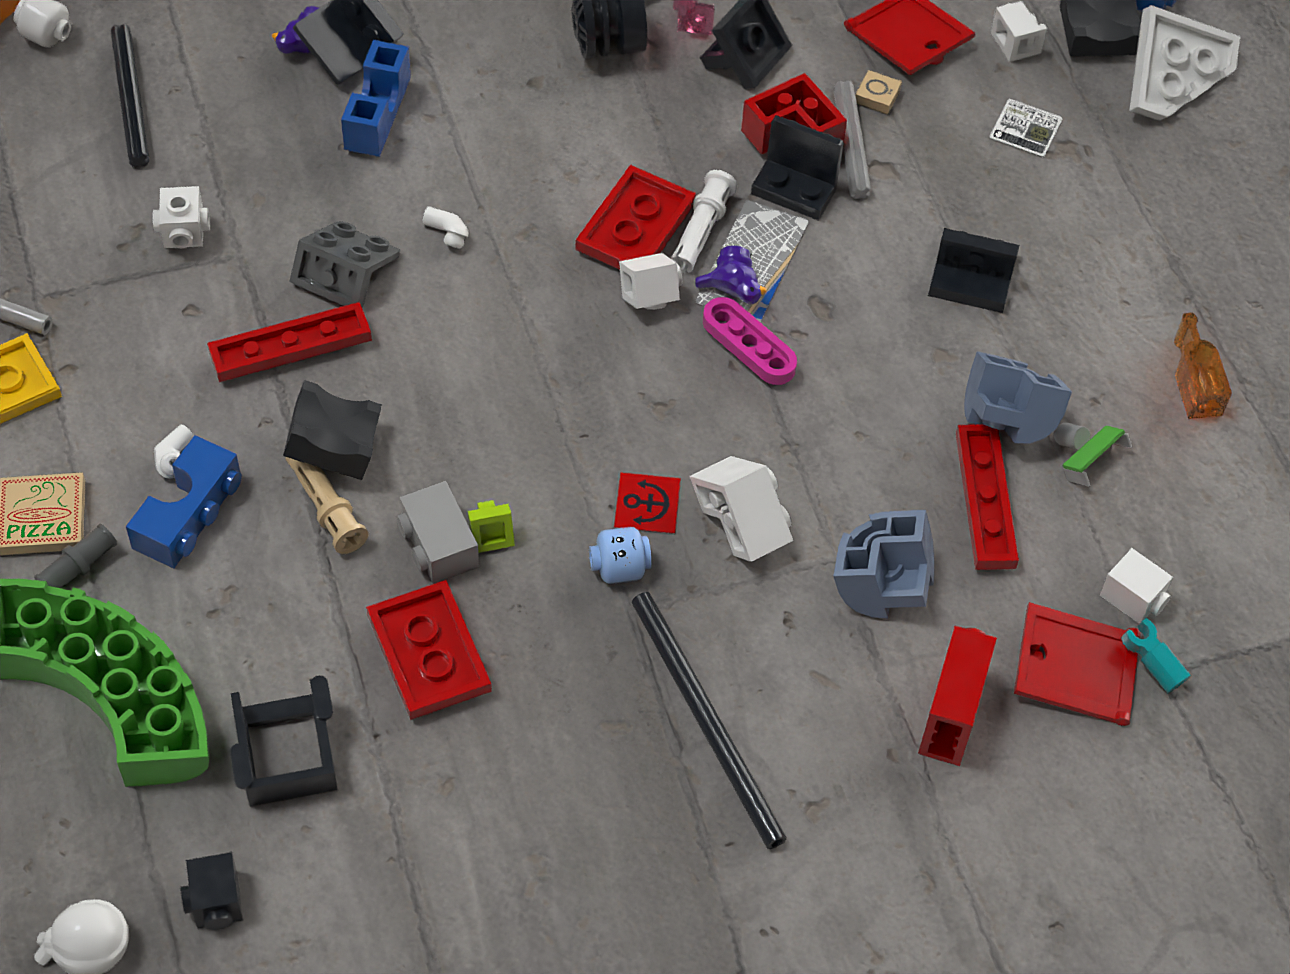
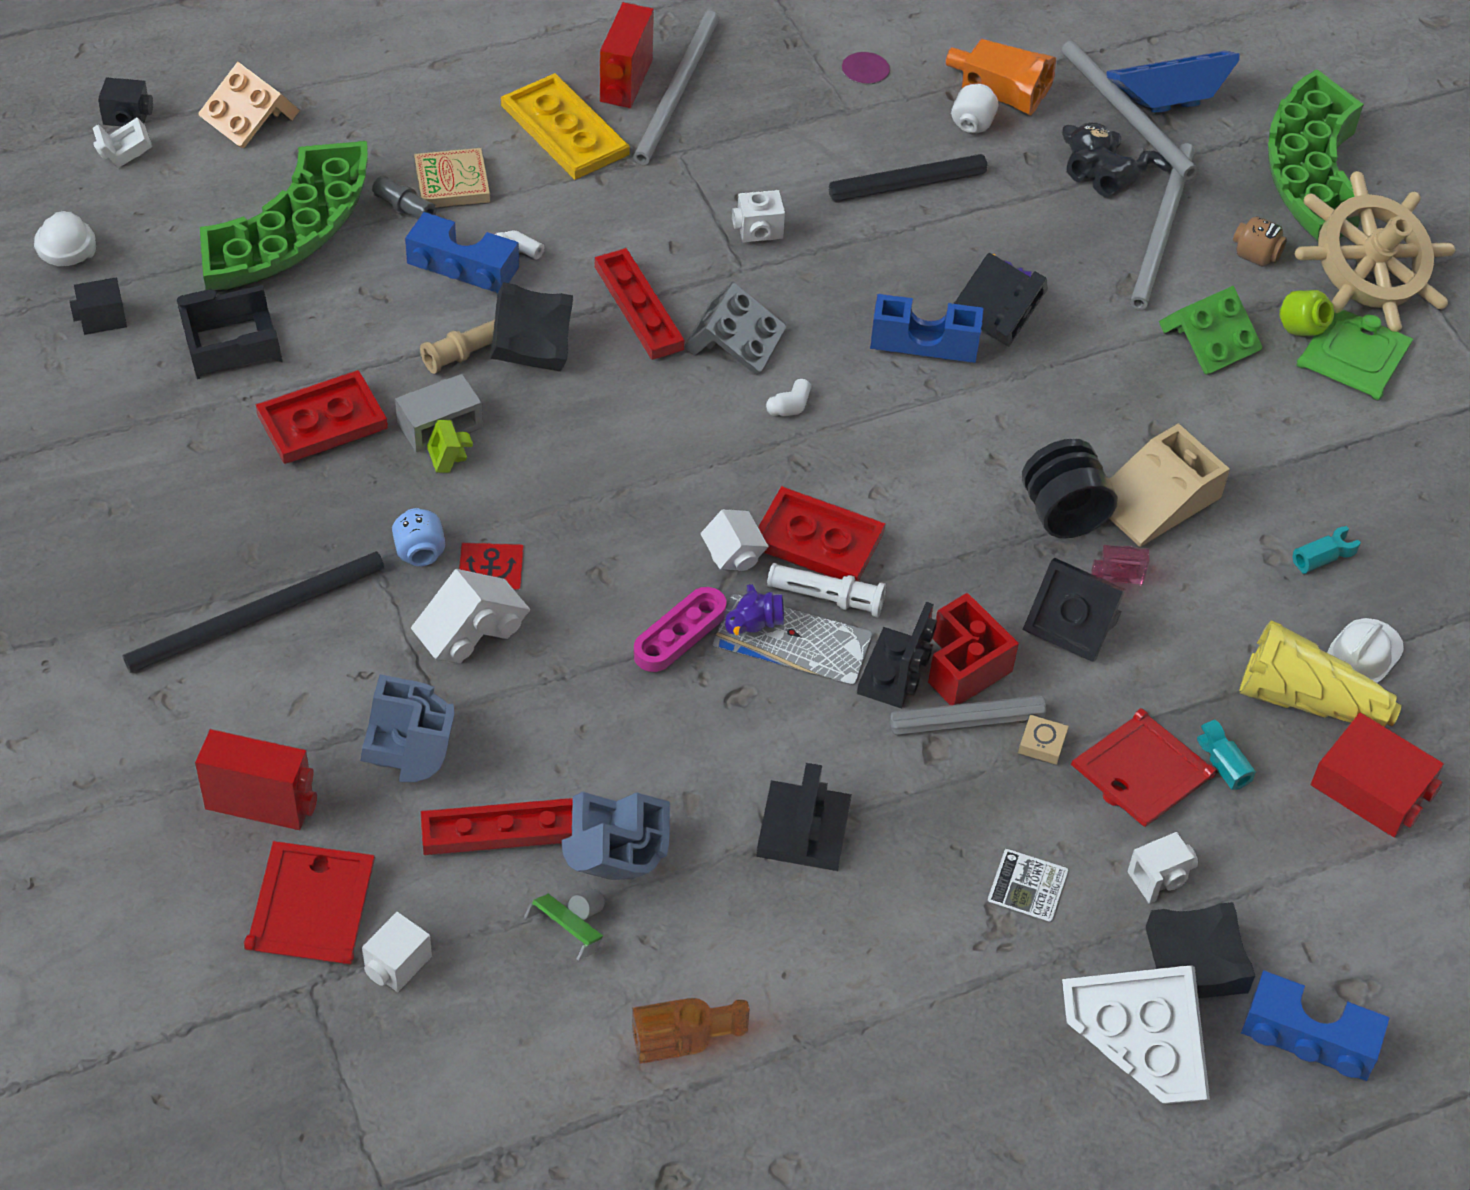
camera: 85 degrees right, 5 degrees down
(1156, 656) = (314, 968): teal bar -> none

